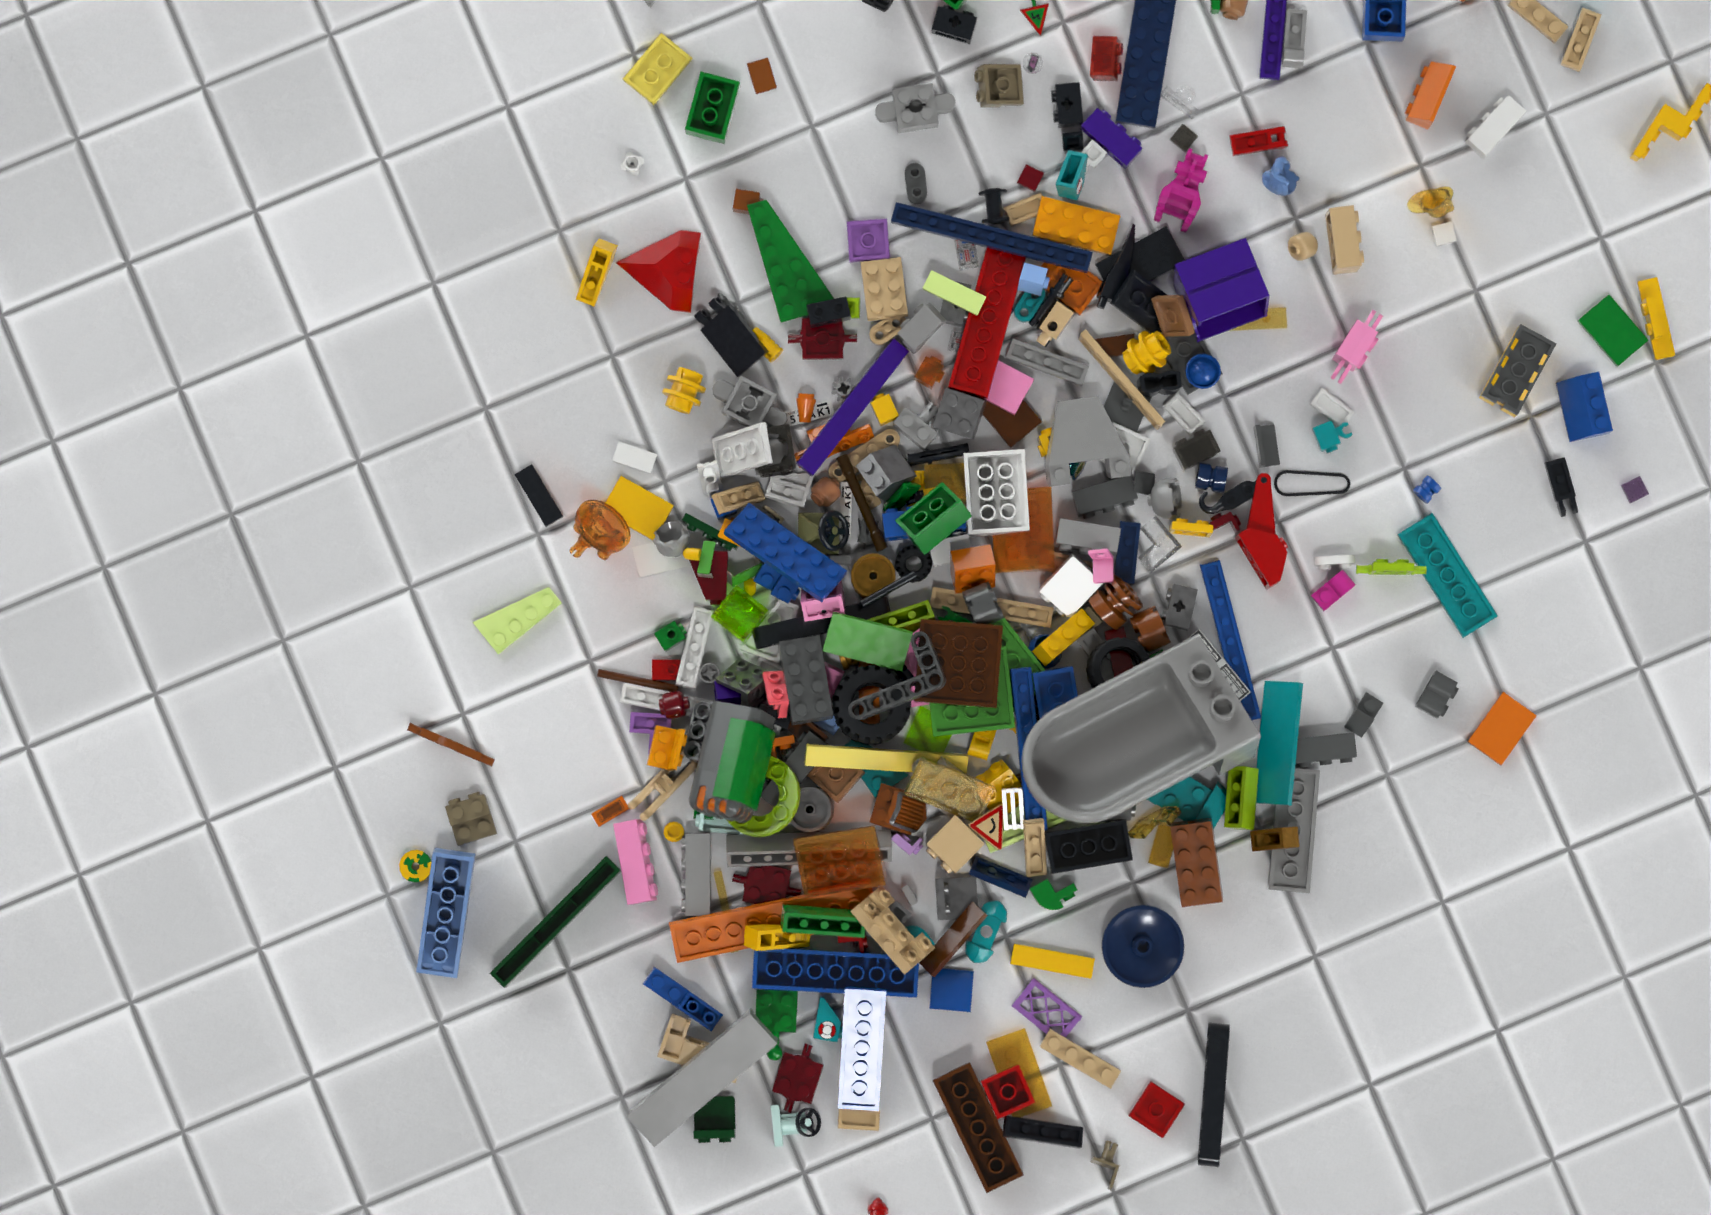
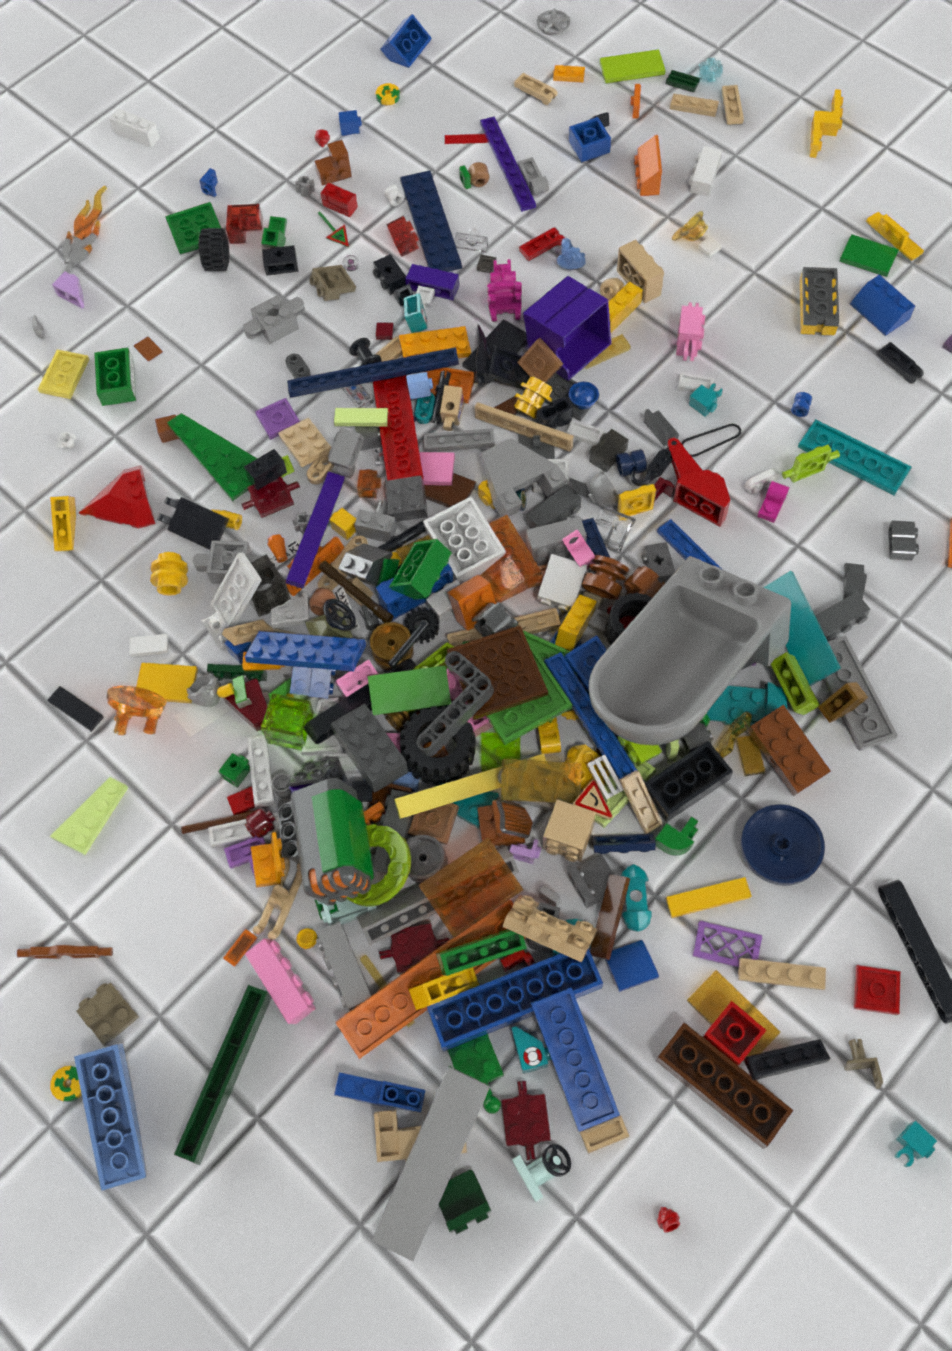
camera: 20 degrees left, 20 degrees down
(776, 692) = (349, 767): coral bracket -> none
(1299, 274) = (624, 304): none -> yellow brick

